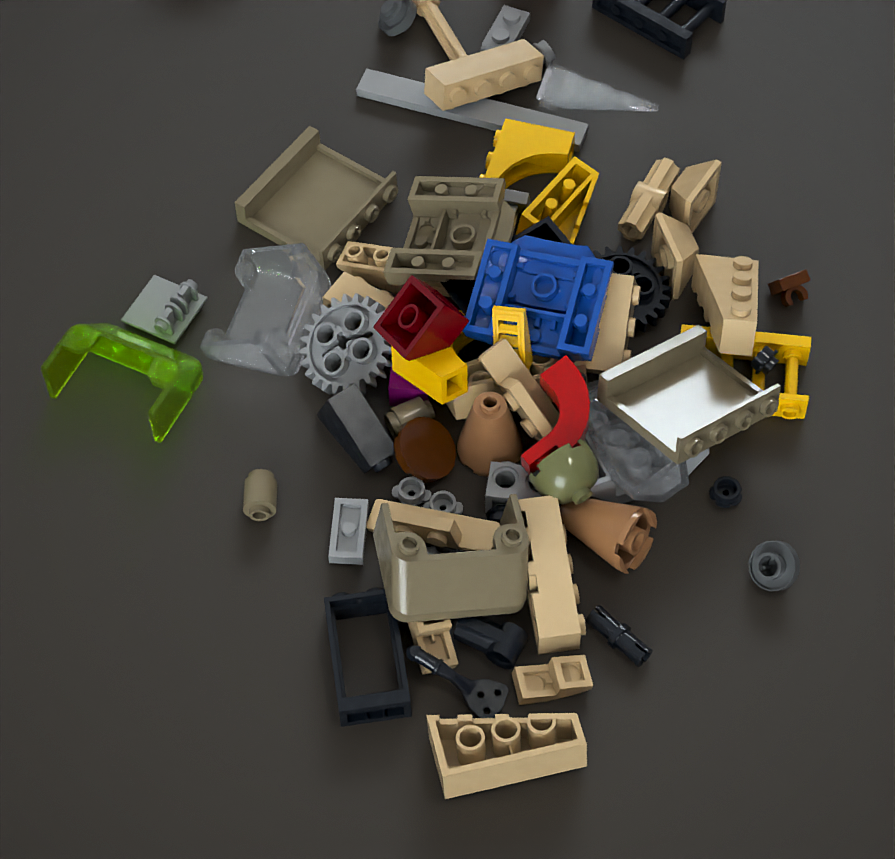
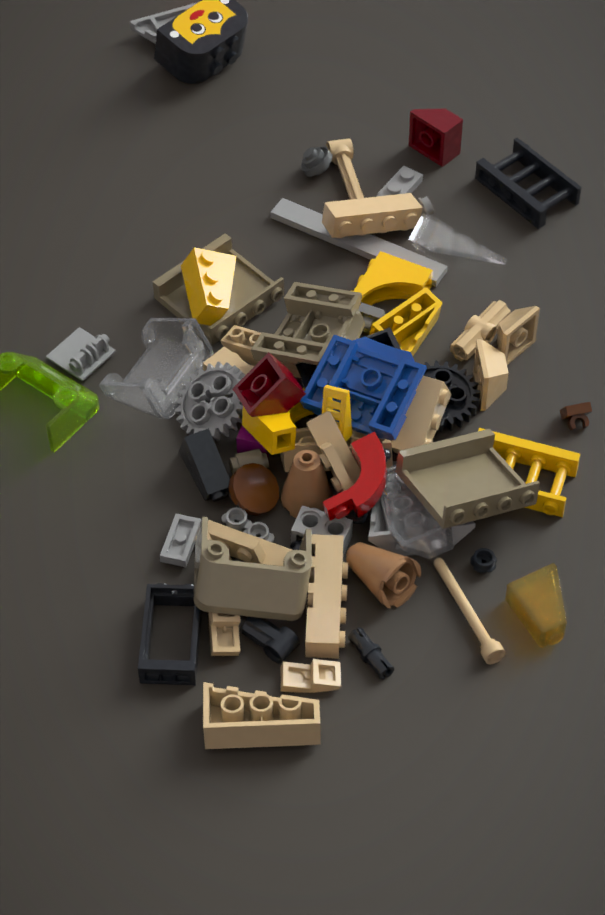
camera: 10 degrees right, 5 degrees down
(260, 495) = (119, 502): dark tan brick -> none
(306, 195) = (208, 284): none -> yellow wedge
(467, 687) = (243, 671): black piece -> none
(567, 474) = (355, 521): olive cylinder -> none
(729, 299) = (521, 415): tan wedge -> none
(764, 360) = (537, 465): black plate -> none
(764, 605) = (490, 649): none -> tan piece
(774, 565) = (506, 621): dark grey plate -> none
(813, 533) = (539, 605): none -> clear yellow slope

